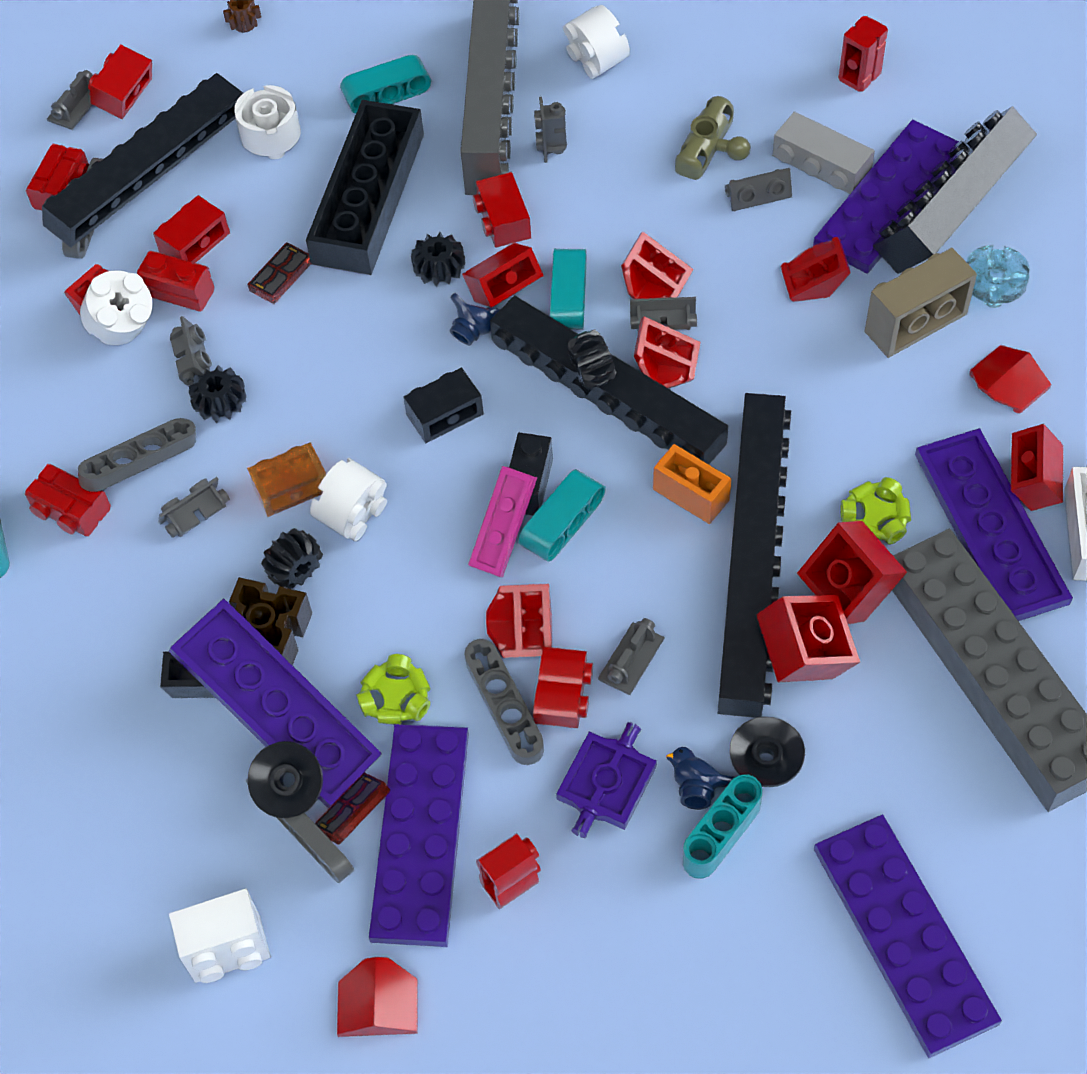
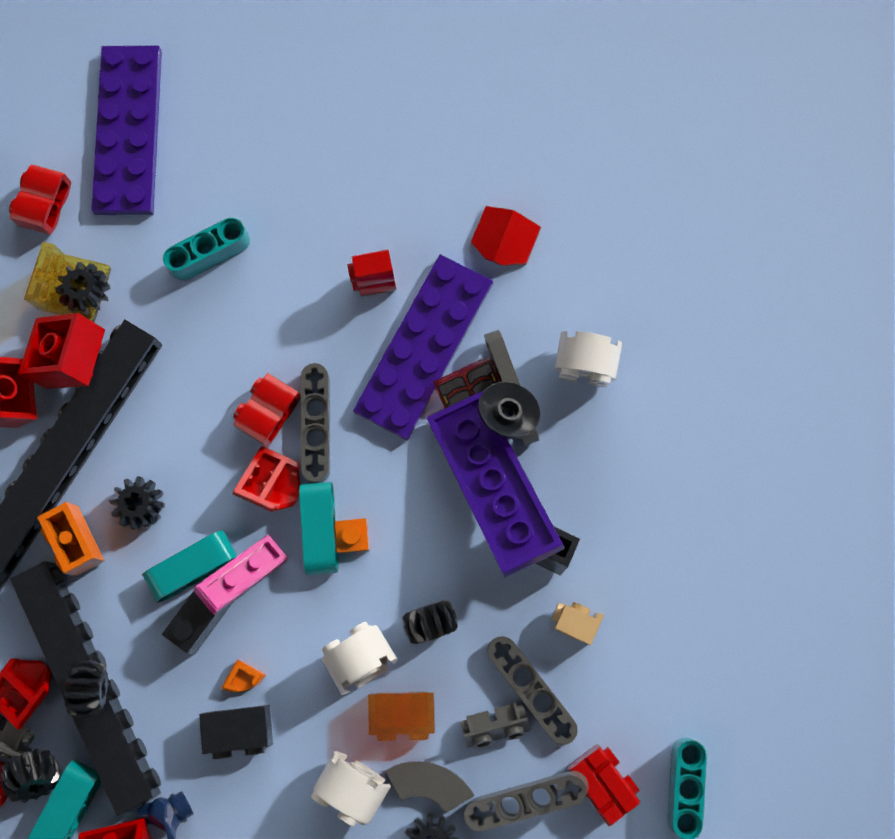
camera: 155 degrees left, 20 degrees up
(140, 623) = (576, 622): none -> tan brick
(166, 554) = (535, 687): none -> dark grey beam
(216, 872) = (588, 357): none -> white brick
(220, 936) = (601, 311): white brick -> none
(247, 440) = (429, 781): none -> dark grey tile
(274, 616) = (455, 568): dark brown brick -> none
(308, 396) = (350, 789): none -> white brick
(395, 691) = (395, 467): lime piece -> none
(412, 612) = (352, 535): none -> orange plate
(448, 601) = (318, 528): none -> teal beam
(461, 451) = (242, 677): none -> orange tile
(606, 780) = (270, 322): dark purple plate -> none
(611, 294) = (30, 775): none -> black gear
(632, 656) = (201, 415): dark grey hinge -> none
(647, 546) = (133, 493): none -> black gear
(695, 778) = (206, 293): dark blue animal -> none
(771, 737) = (134, 280): black dish -> none
(840, 727) = (85, 277): none -> black gear
(854, 722) = (44, 279): none -> clear yellow bracket
(948, 799) = (40, 199): none -> red brick

